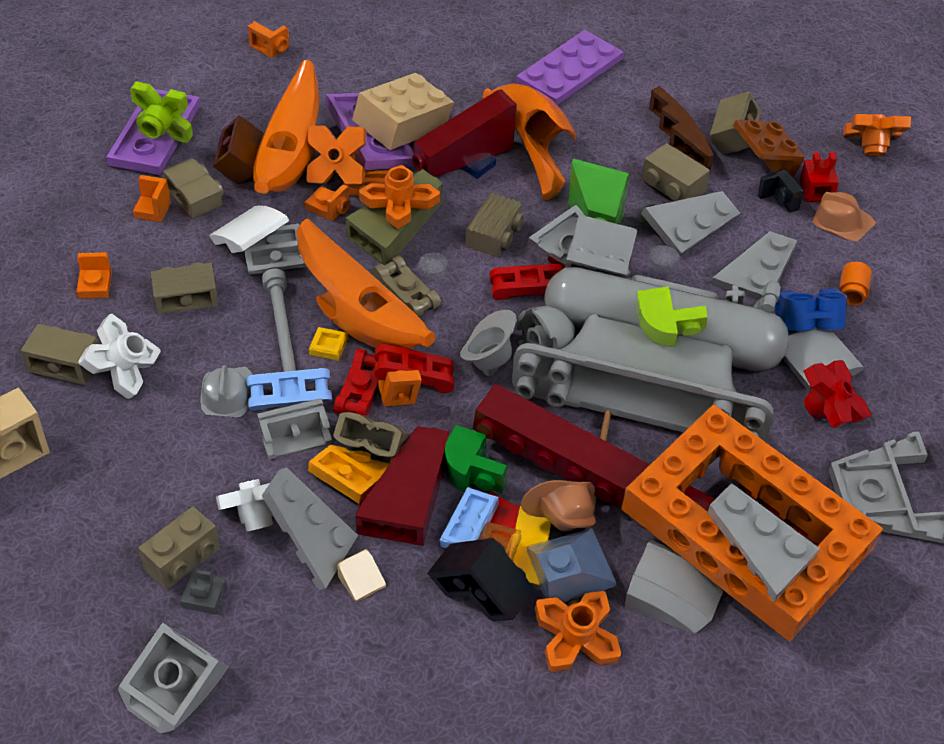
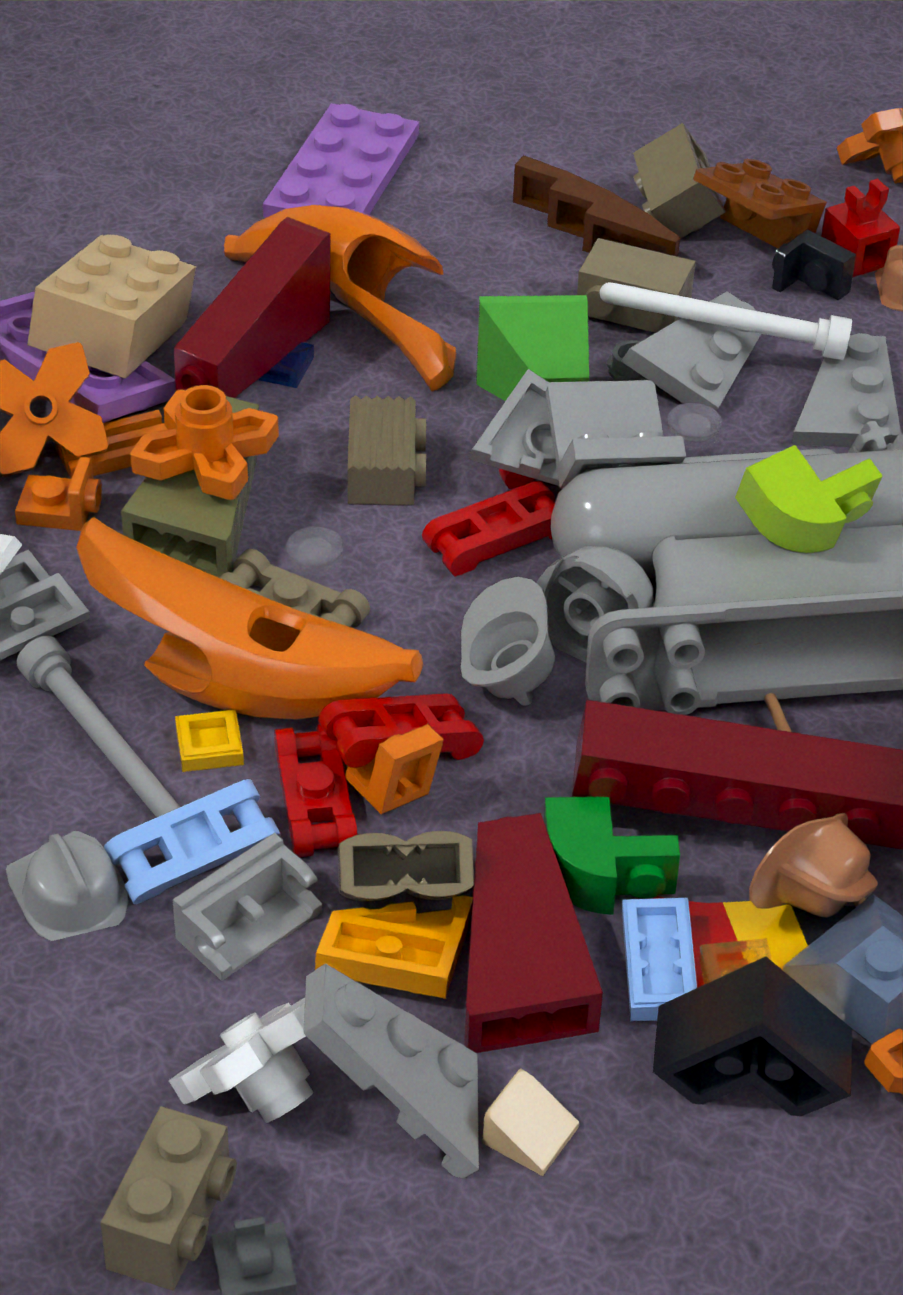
camera: 25 degrees left, 5 degrees down
(758, 231) = (827, 335): none -> white piece

